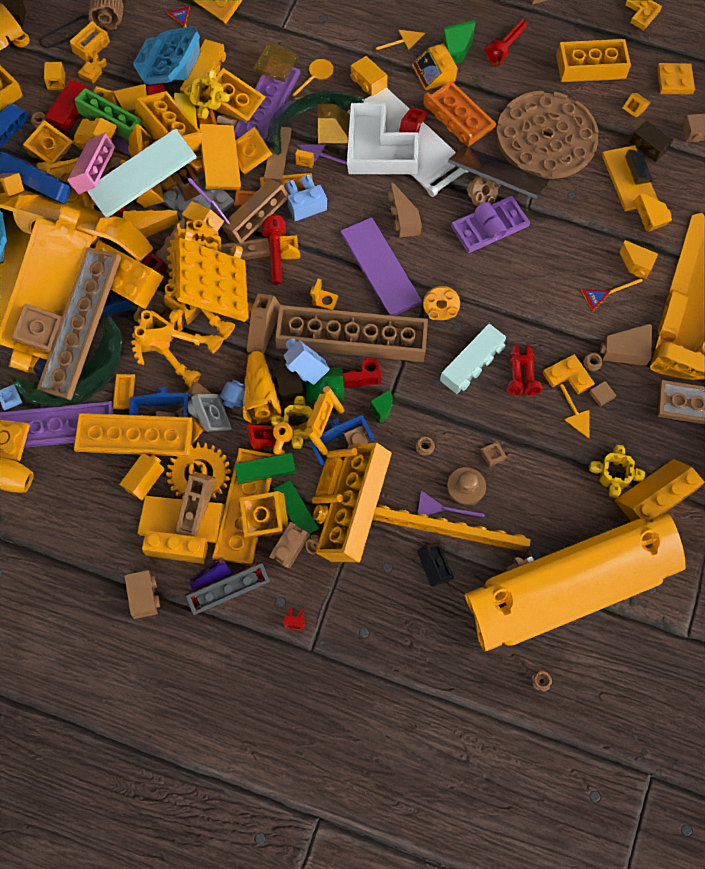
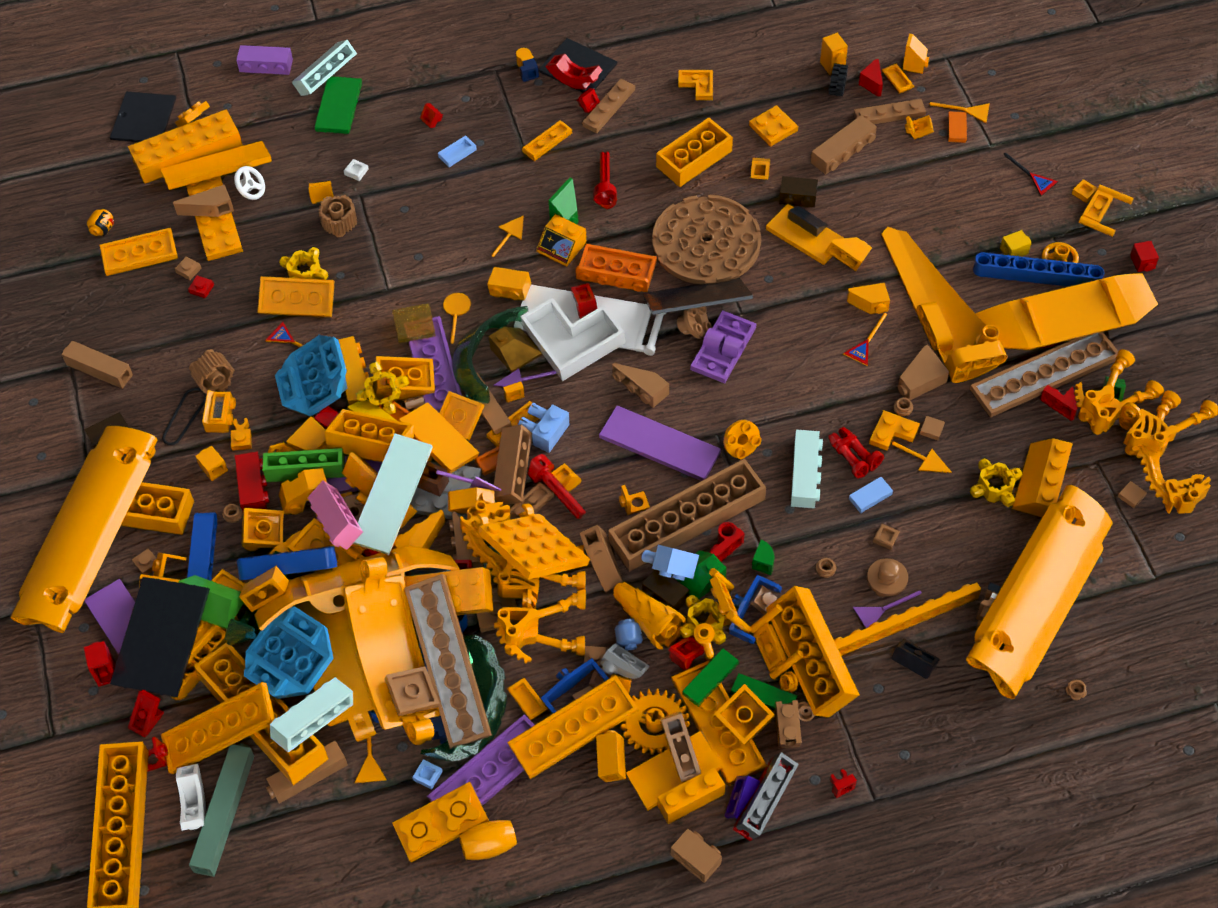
camera: 30 degrees left, 10 degrees down
(508, 413) = (870, 494): none -> light blue tile

